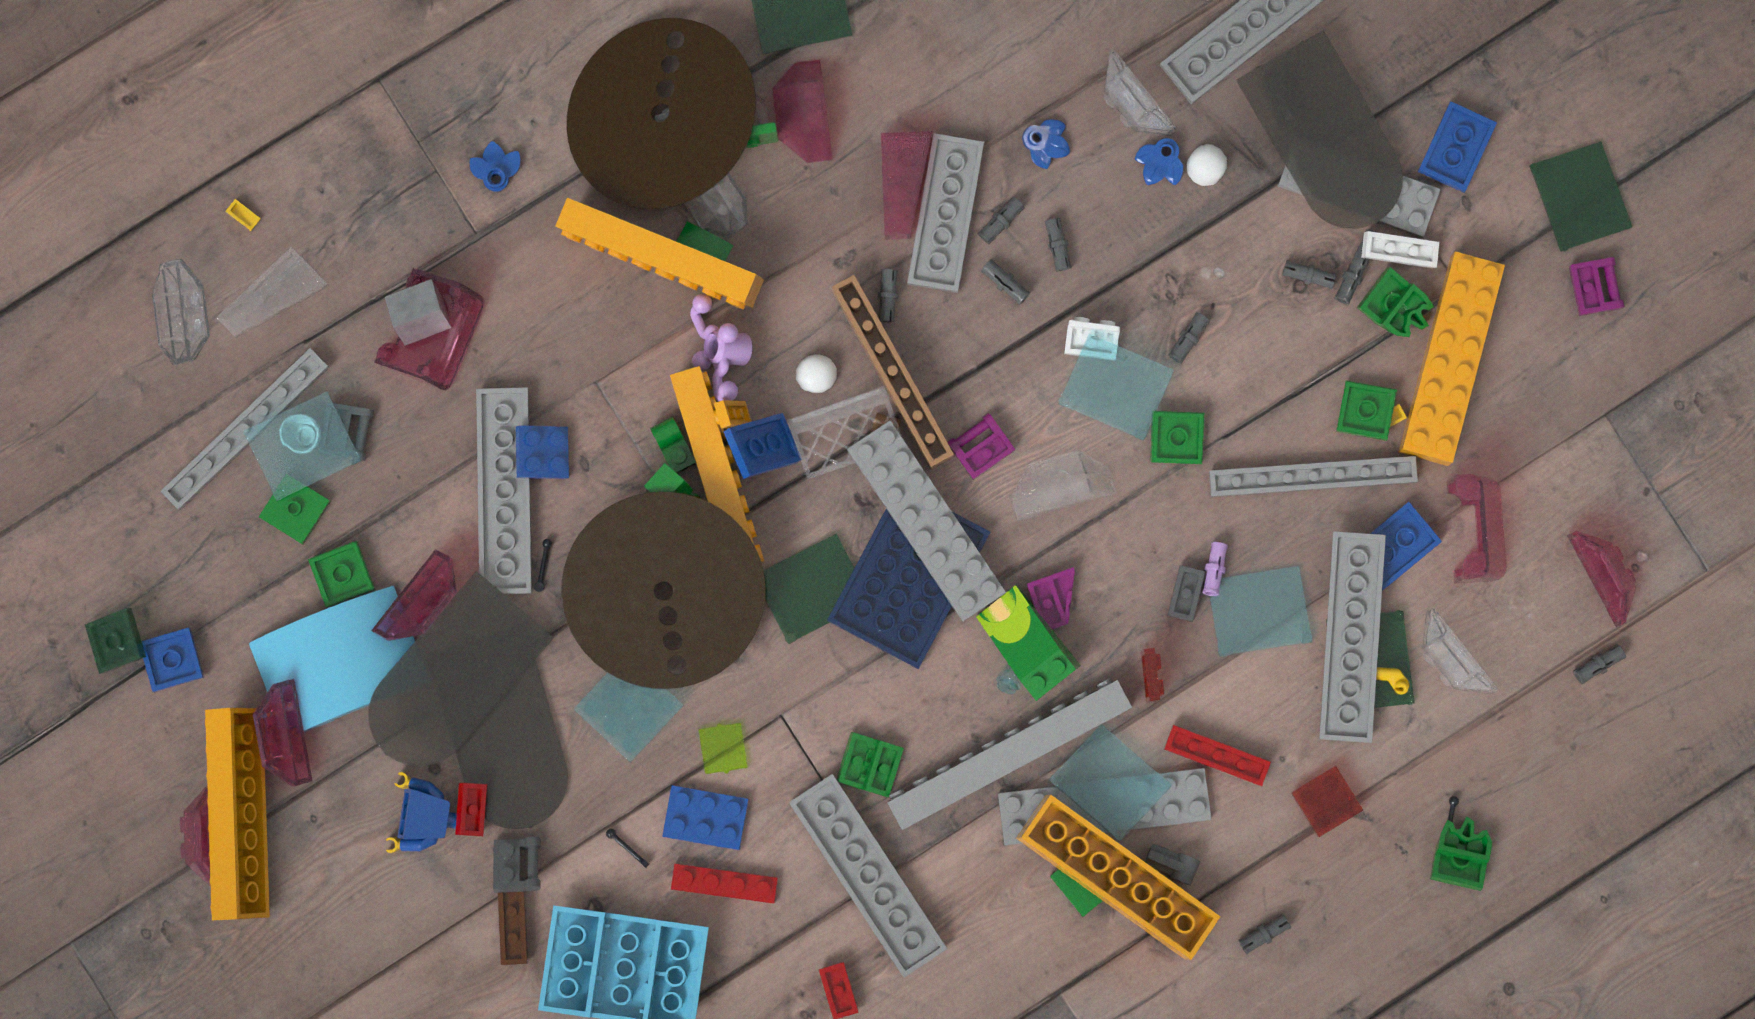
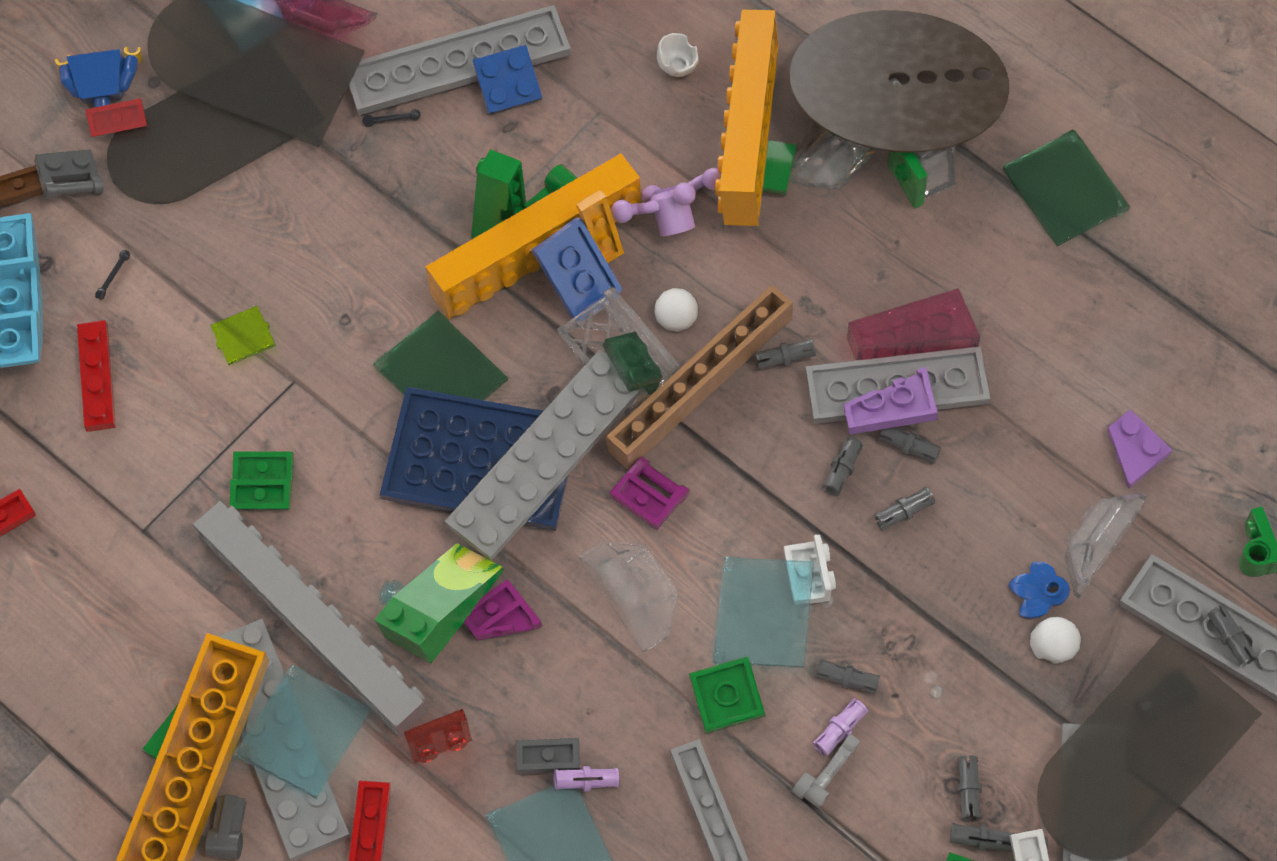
camera: 75 degrees right, 20 degrees down
(566, 296) = (676, 55): none -> white hair
(627, 713) = (262, 232): clear light blue plate -> none
(652, 541) = (441, 222): dark brown piece -> none
(705, 817) = (163, 338): blue plate -> none
(803, 112) = (954, 219): clear pink wedge -> none
(868, 875) = (135, 512): light grey plate -> none
(872, 424) = (633, 362): none -> clear green bracket
(970, 222) = (898, 405): none -> medium lavender wing
(1049, 144) = (1015, 468): blue plate -> none
(1059, 39) = (1136, 447): none -> medium lavender wing
(1229, 357) = (840, 727): none -> lavender pin
(1251, 27) = (1232, 635): none -> dark grey pin
(1275, 394) = (814, 789): none -> light grey brick

